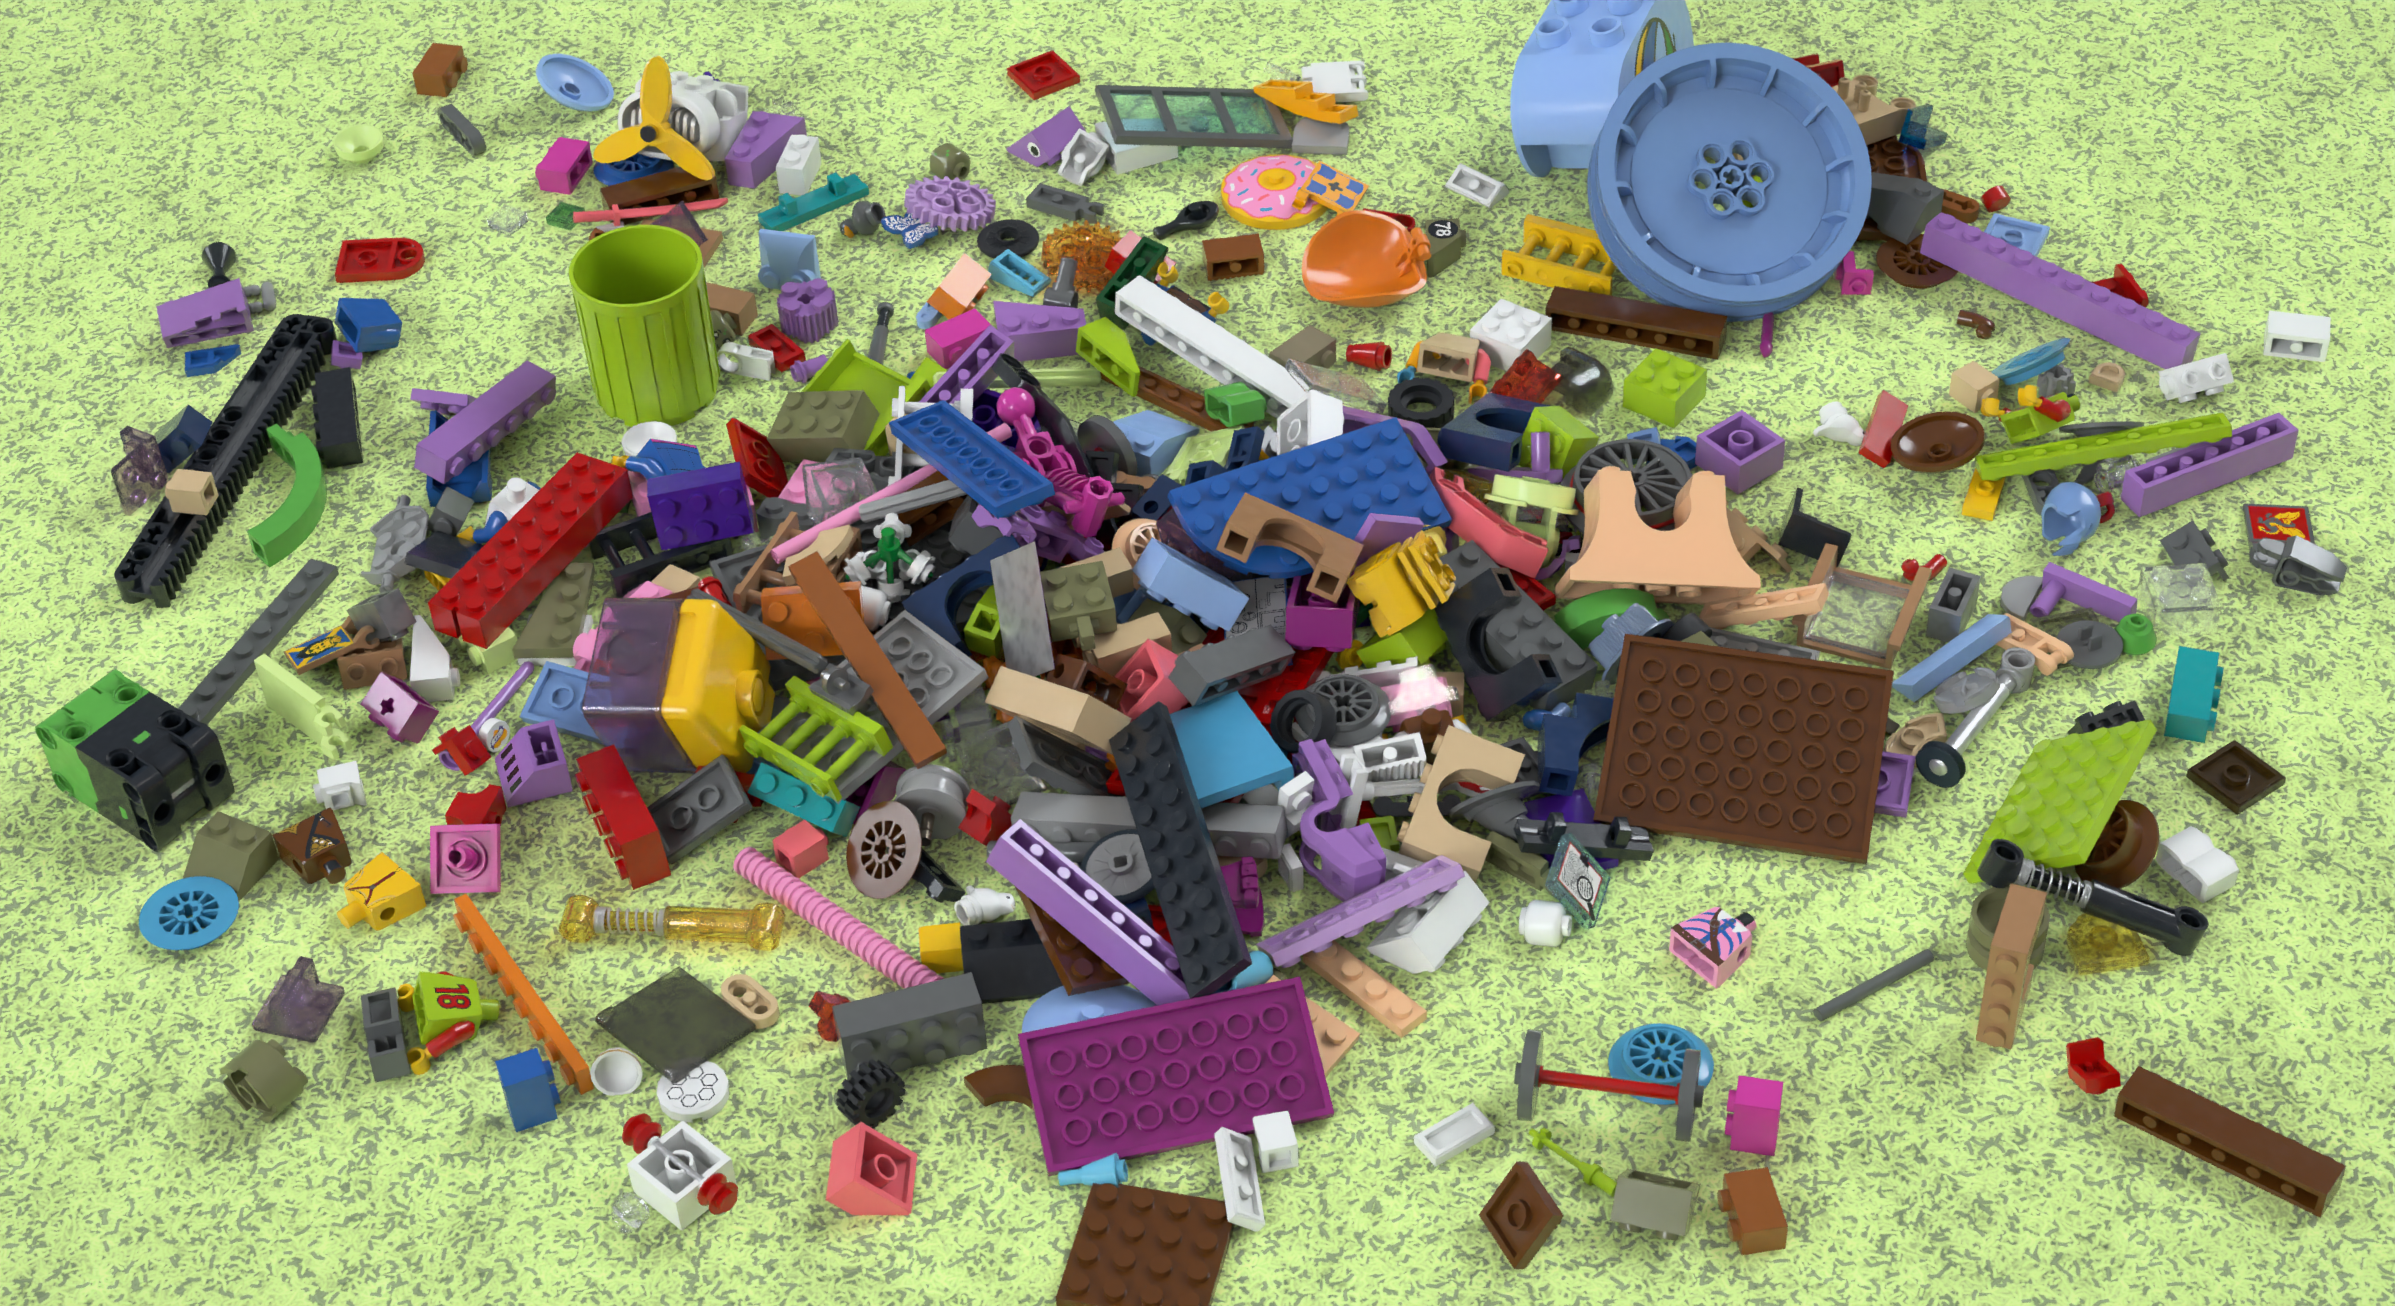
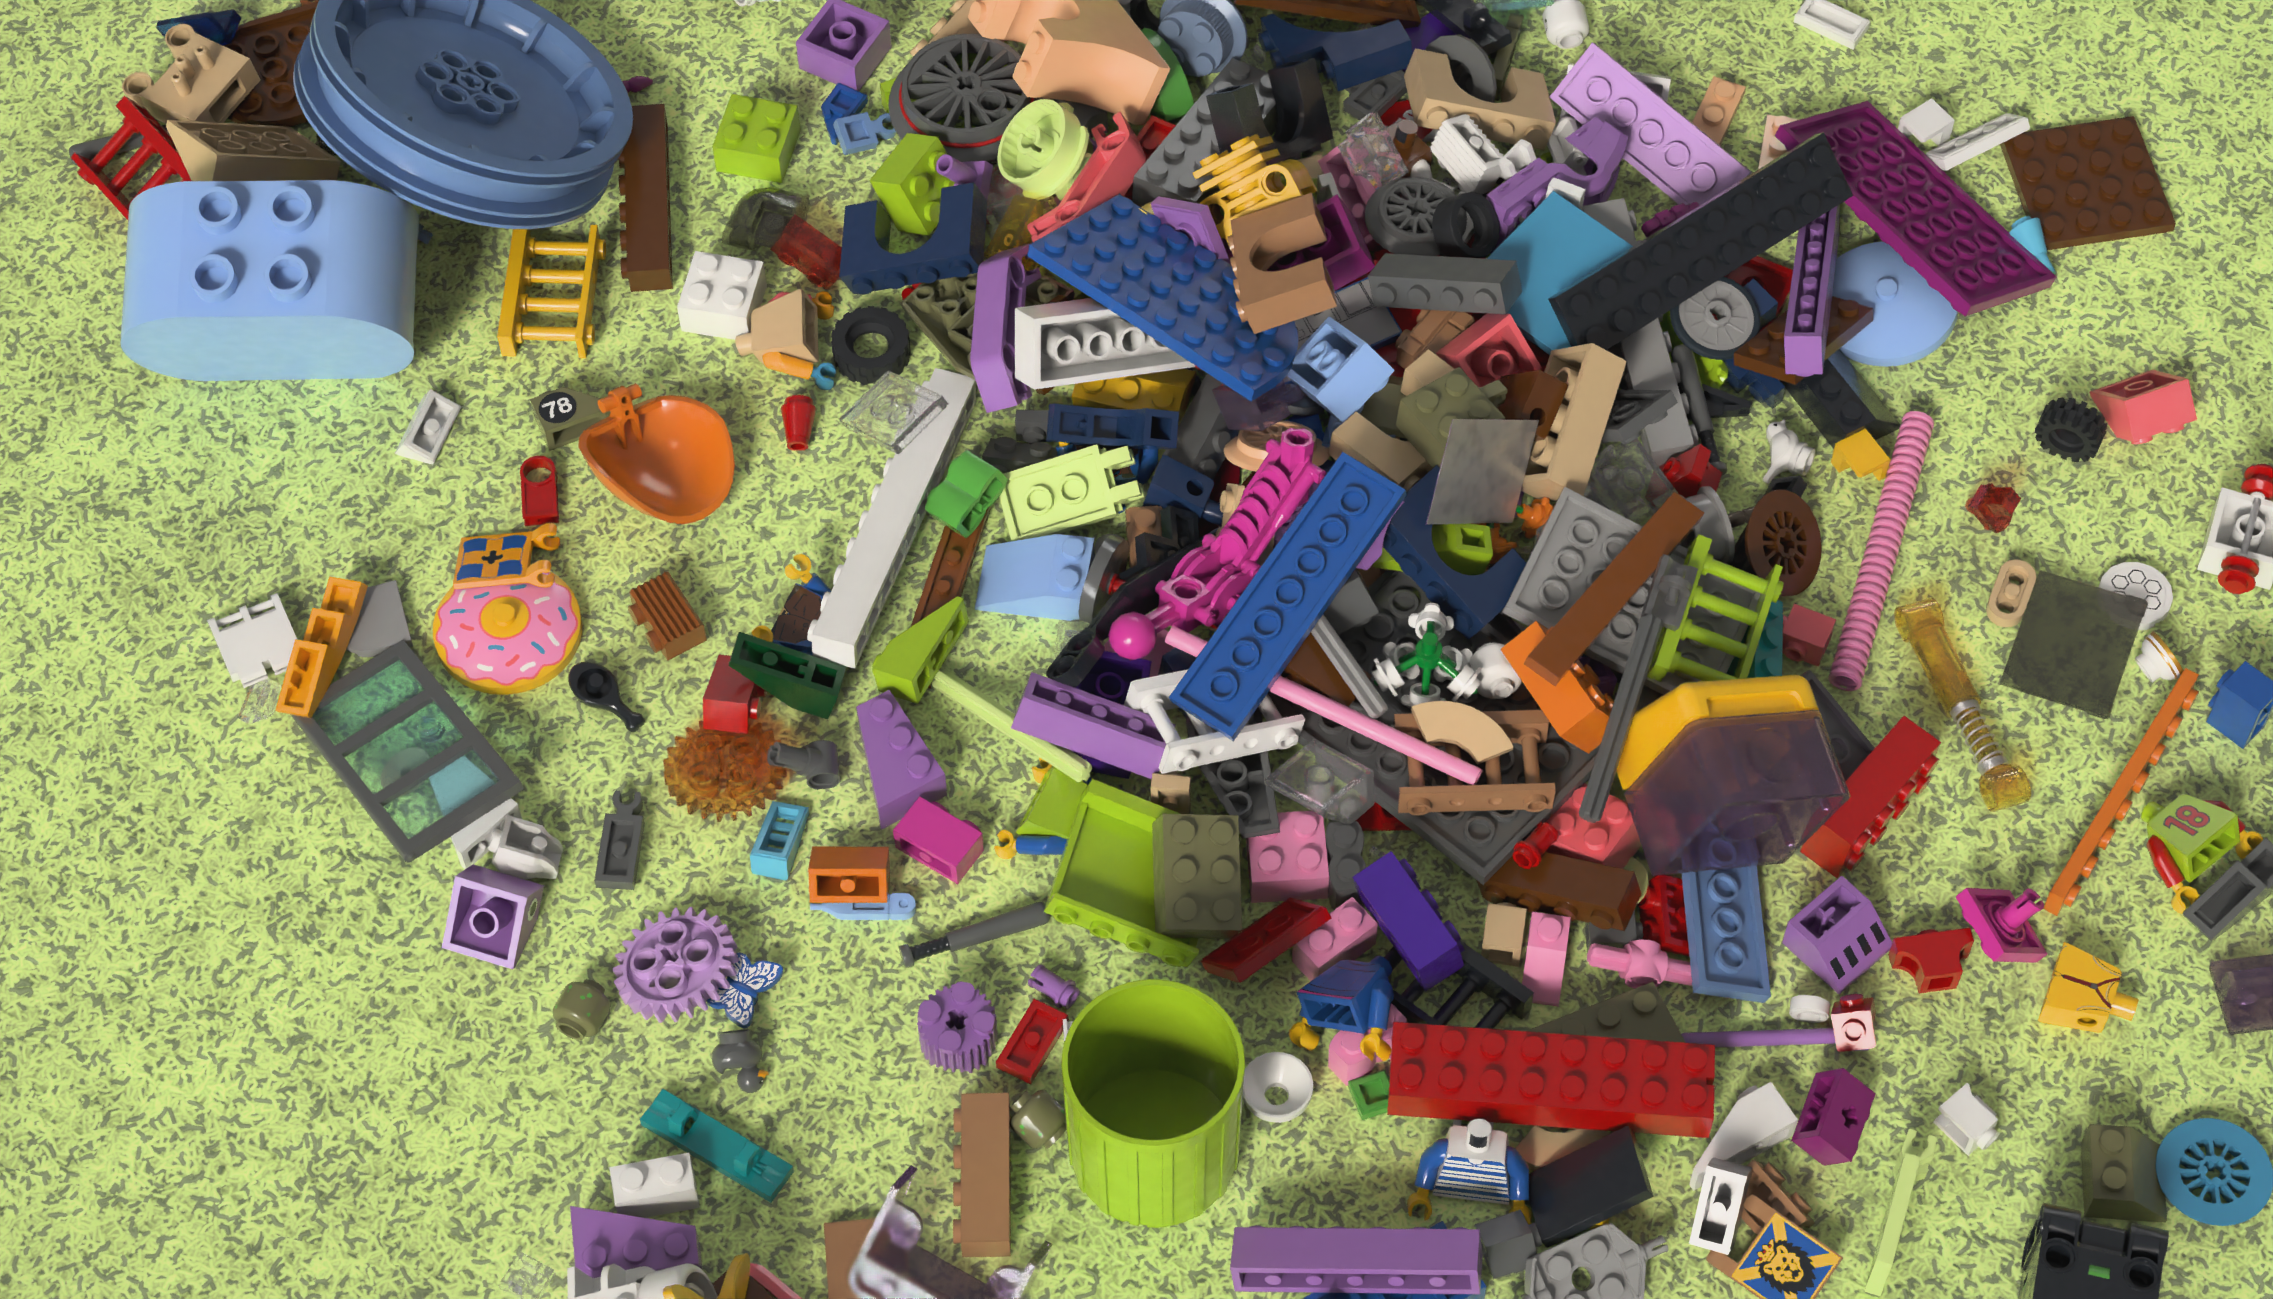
camera: 115 degrees left, 15 degrees up
(315, 848) = (2061, 1093): reddish brown torso -> none
(787, 258) = (882, 1082): light blue slope -> none
(912, 1025) = (1983, 426): dark grey brick -> none
(999, 1085) = (1974, 351): reddish brown tile -> none
(1024, 238) = (705, 860): black wheel -> none
(1043, 75) = (331, 992): red tile -> none
(1309, 347) = (831, 479): dark tan brick -> none

